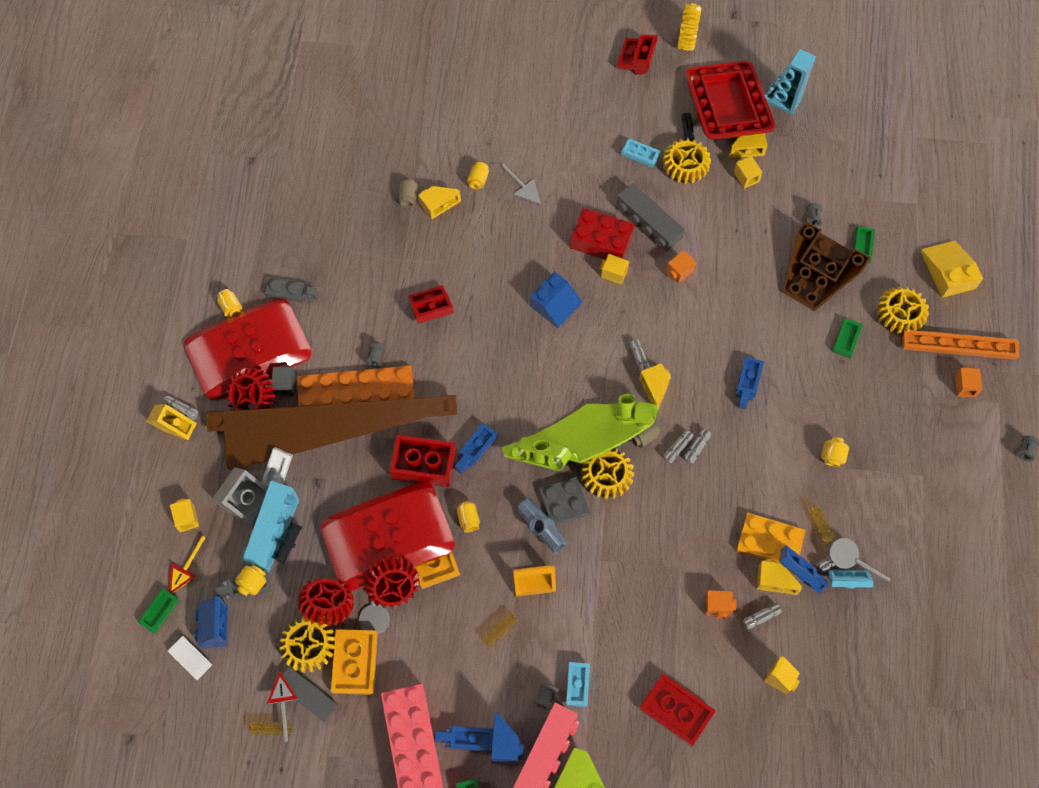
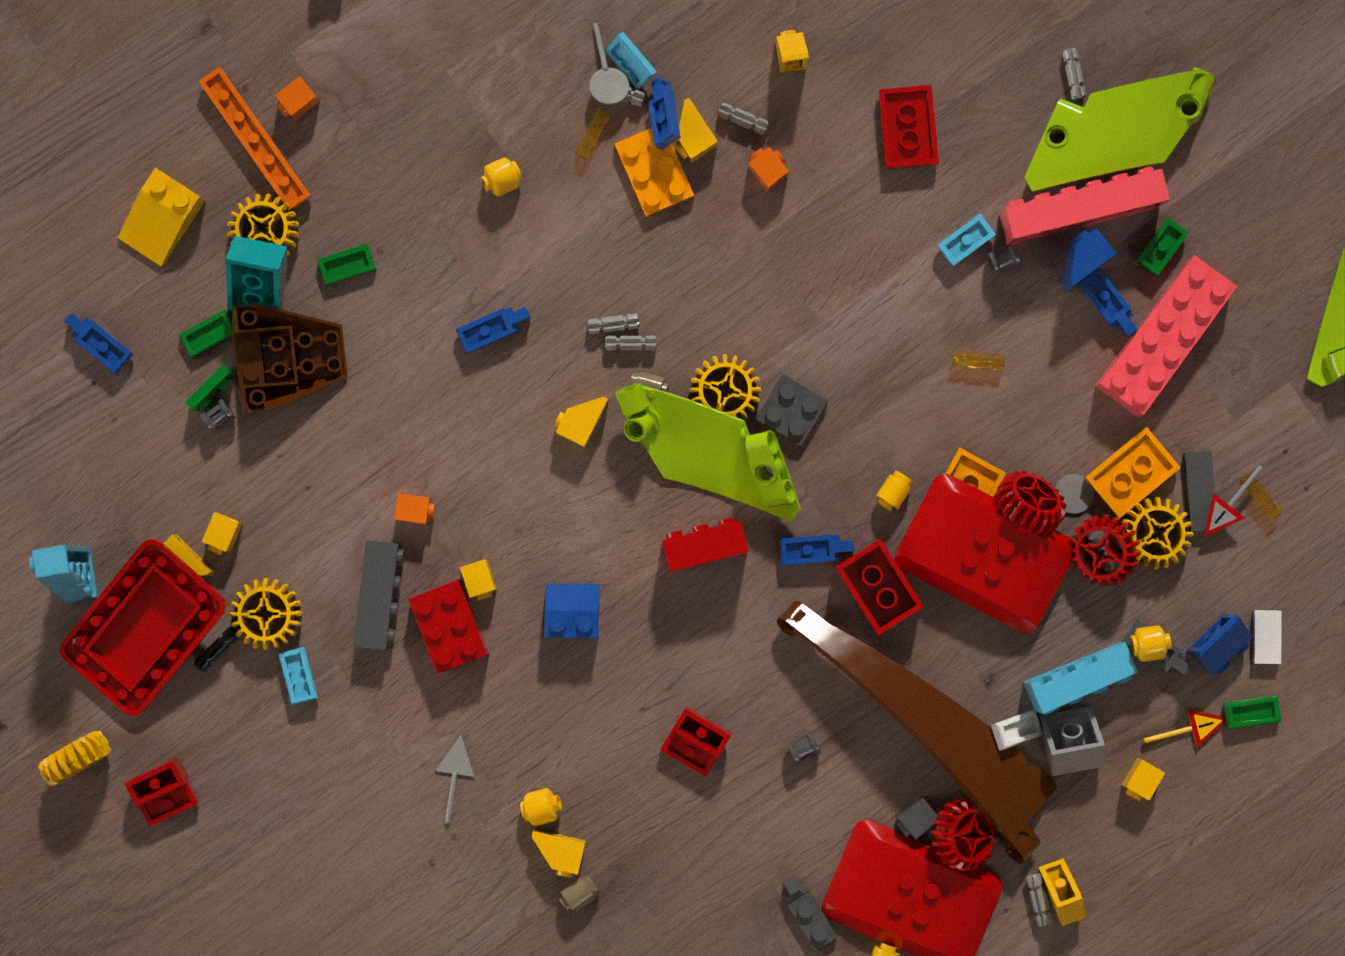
camera: 130 degrees left, 20 degrees up
(287, 543) = (1077, 648): black pin -> none
(356, 386) = (858, 734): orange plate -> none
(468, 208) = (540, 807): none -> yellow head
(478, 175) = (489, 834): yellow brick -> none
(530, 388) = (704, 544): none -> red brick
(534, 580) = (902, 367): light orange tile -> none
(549, 533) = (840, 407): sand blue piece -> none
(639, 355) = (560, 466): light grey axle -> none
(832, 221) = (203, 395): none -> green plate
(881, 282) = (255, 273): none -> teal slope
(901, 190) = (99, 343): none -> blue hinge

